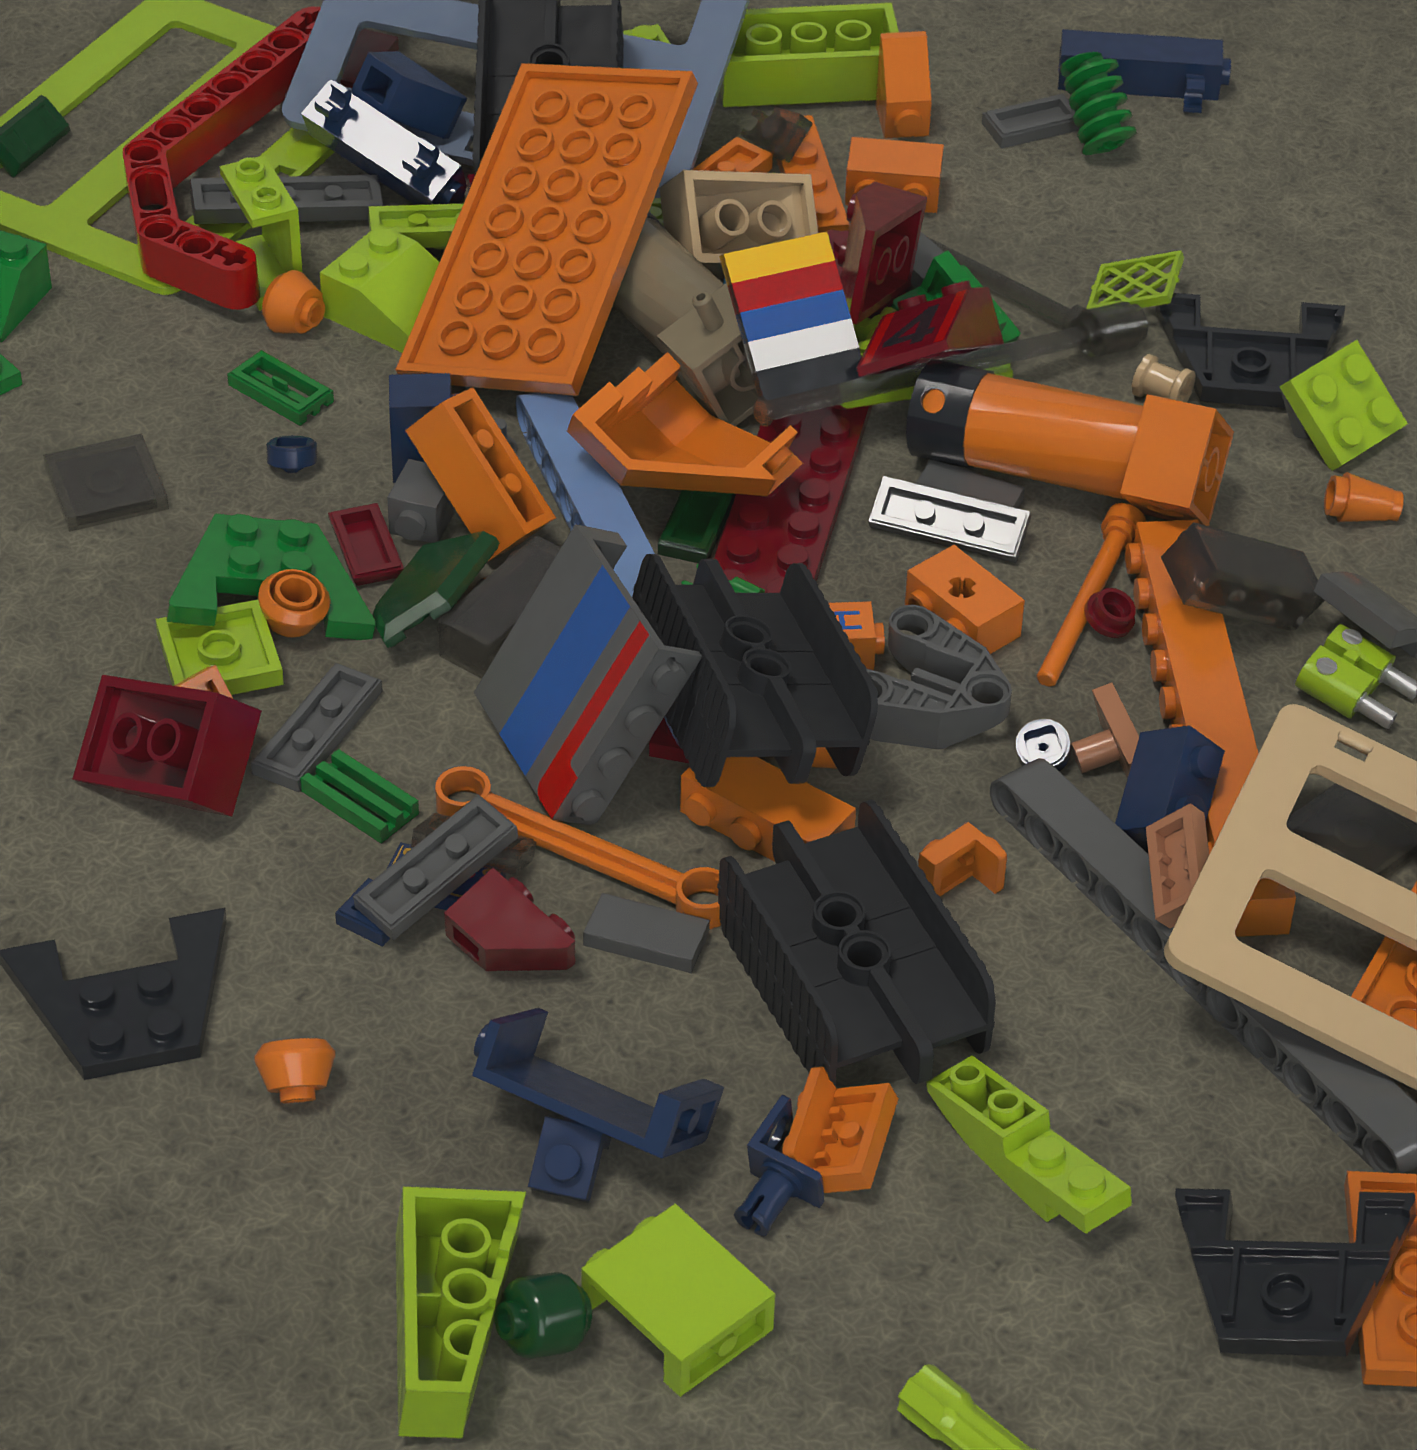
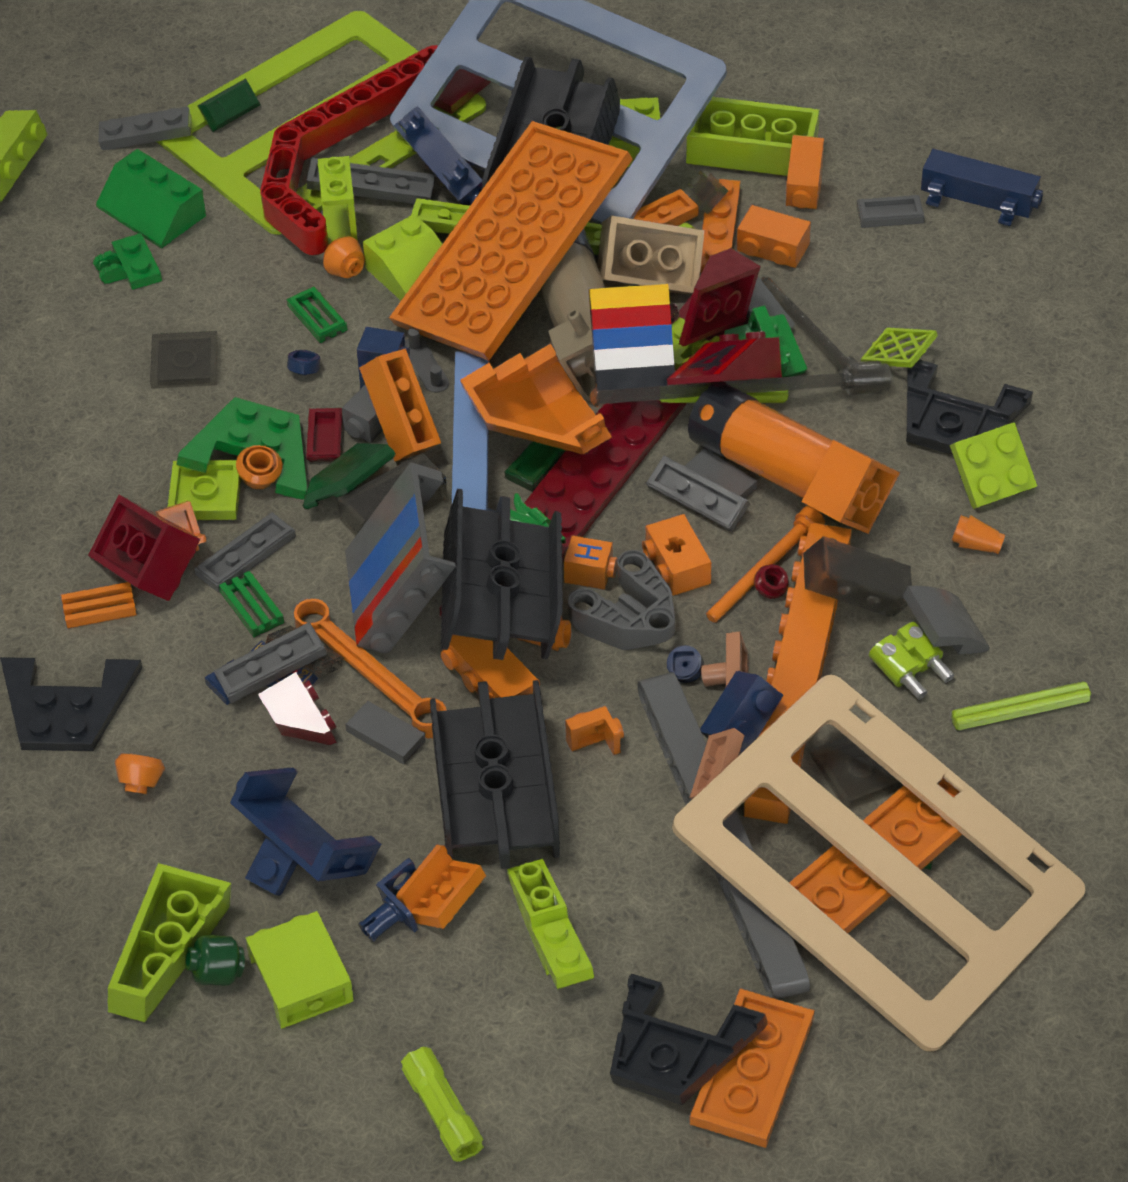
camera: 20 degrees right, 5 degrees up
(117, 839) = (97, 601): none -> orange tile
(408, 93) = (465, 122): dark blue slope -> none
(1096, 103) = (930, 209): green piece -> none
(1162, 380) = (883, 423): tan bush -> none

